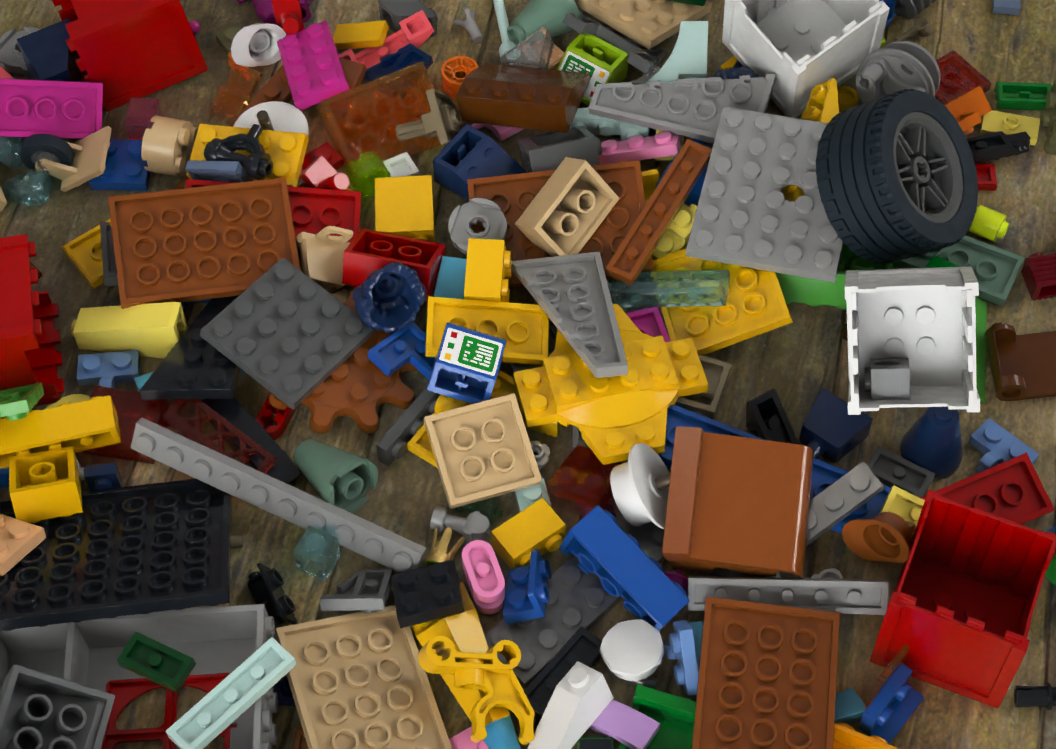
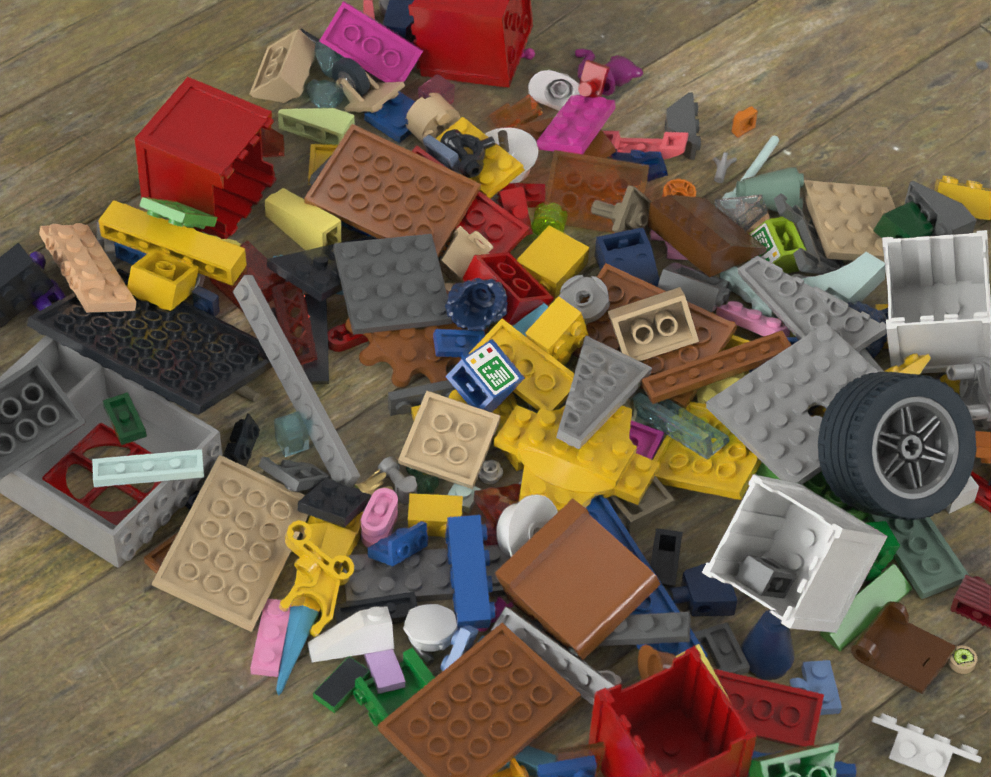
camera: 35 degrees right, 5 degrees down
(56, 220) = (317, 124): none -> yellowish green slope
(108, 368) = (270, 238): medium blue plate -> none
(336, 474) = (347, 397): sand green cone -> none
(360, 35) = (634, 126): yellow tile -> none
(401, 166) = (578, 230): white plate -> none
(989, 224) = (966, 534): neon yellow brick -> none

